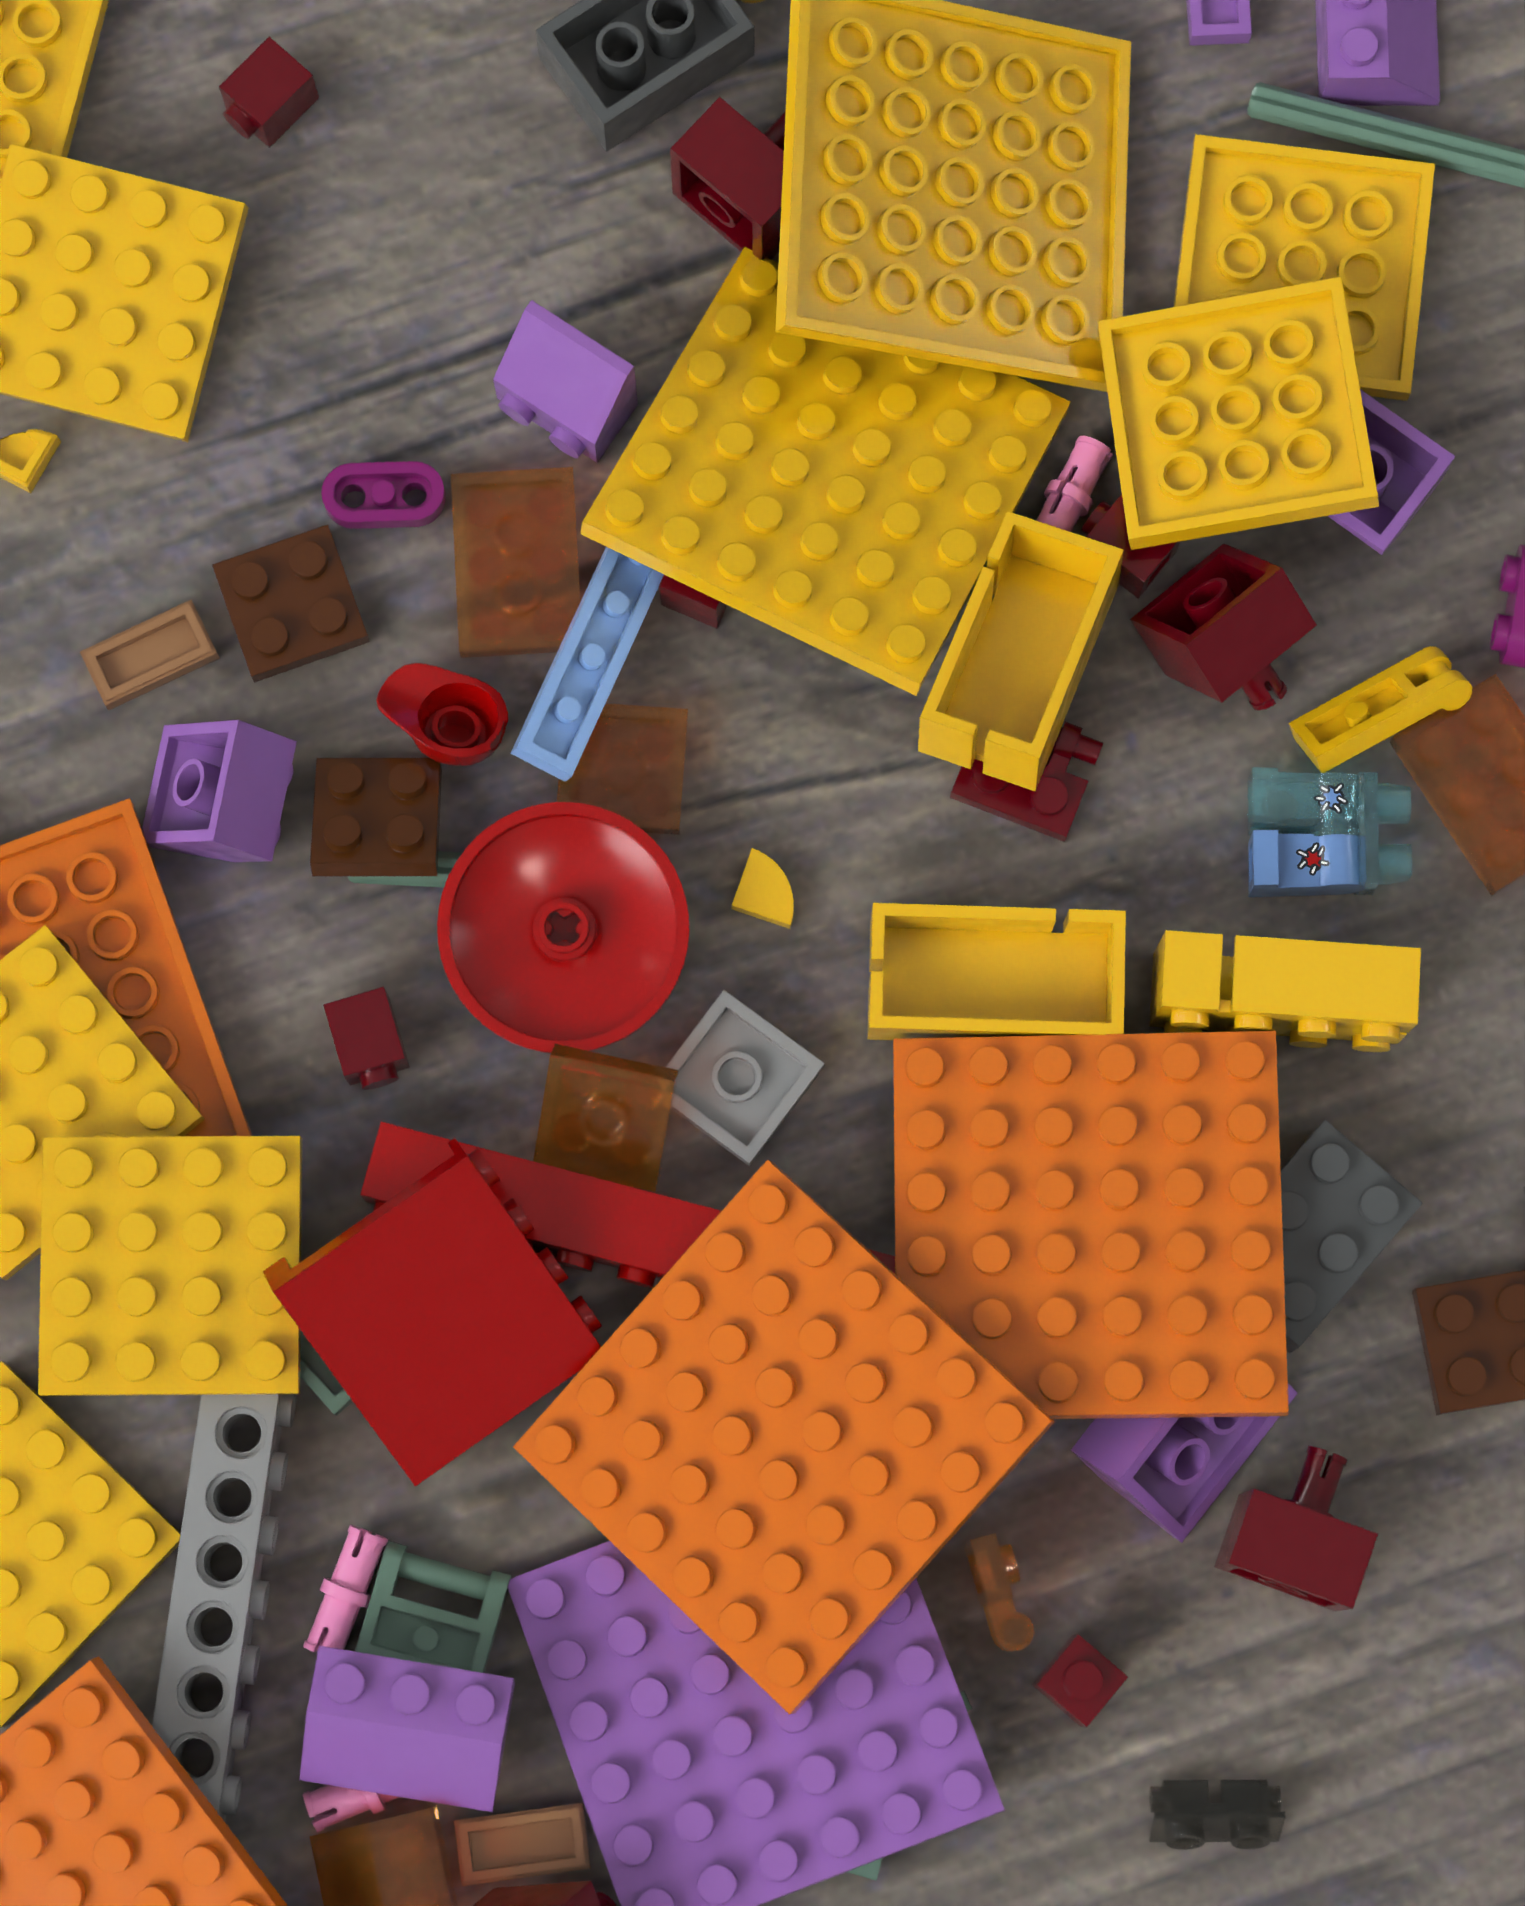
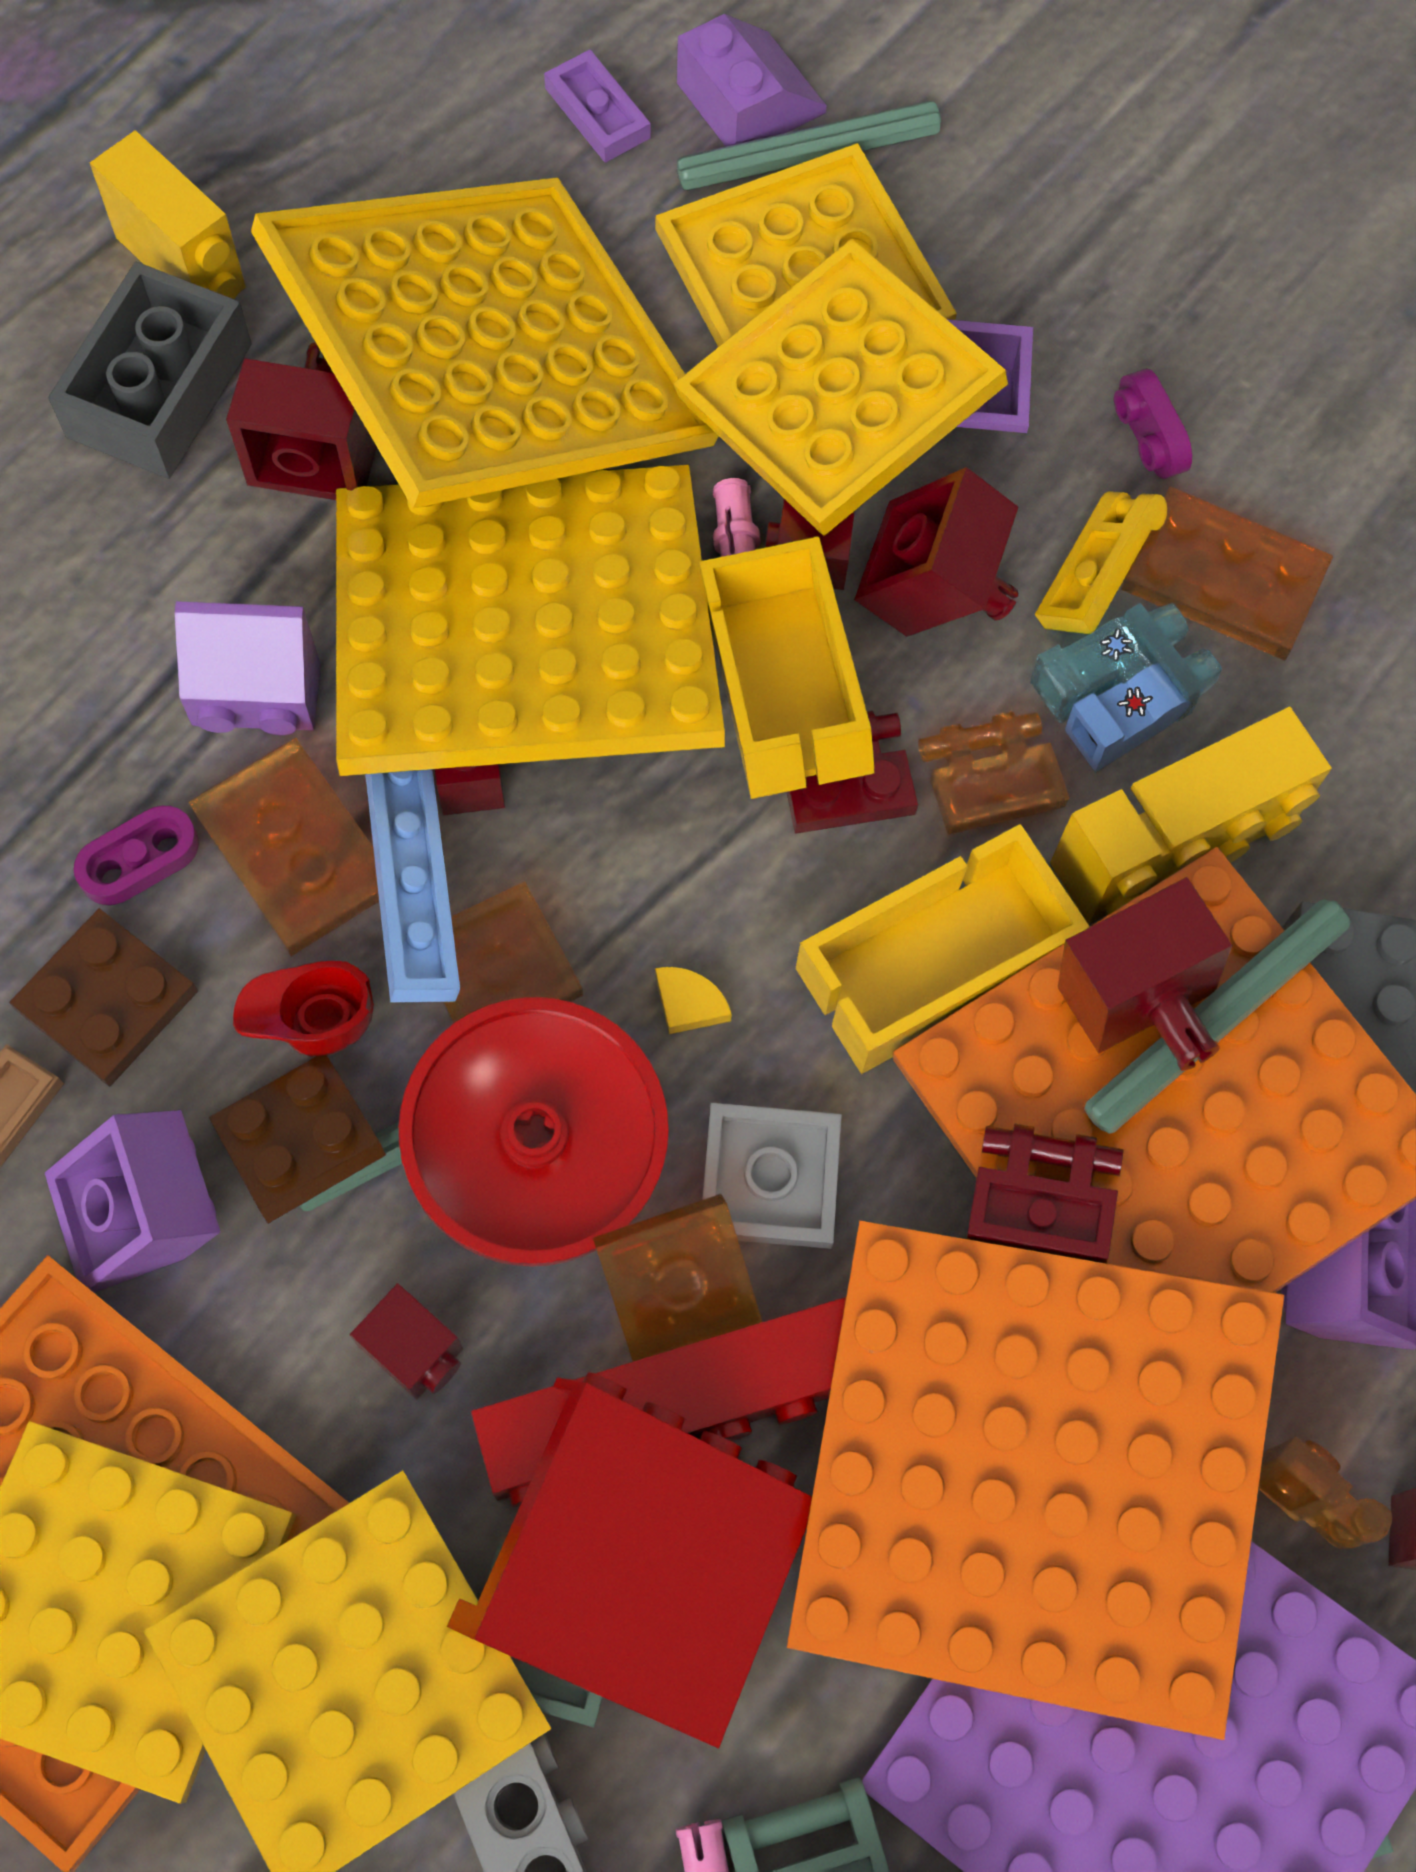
camera: 35 degrees left, 10 degrees down
(916, 1244) = (1040, 1211): none -> dark red plate
(1120, 1103) = (1148, 972): none -> dark red brick
(1147, 861) = (997, 786): none -> clear orange plate
(1166, 1171) = (1221, 1012): none -> sand green axle

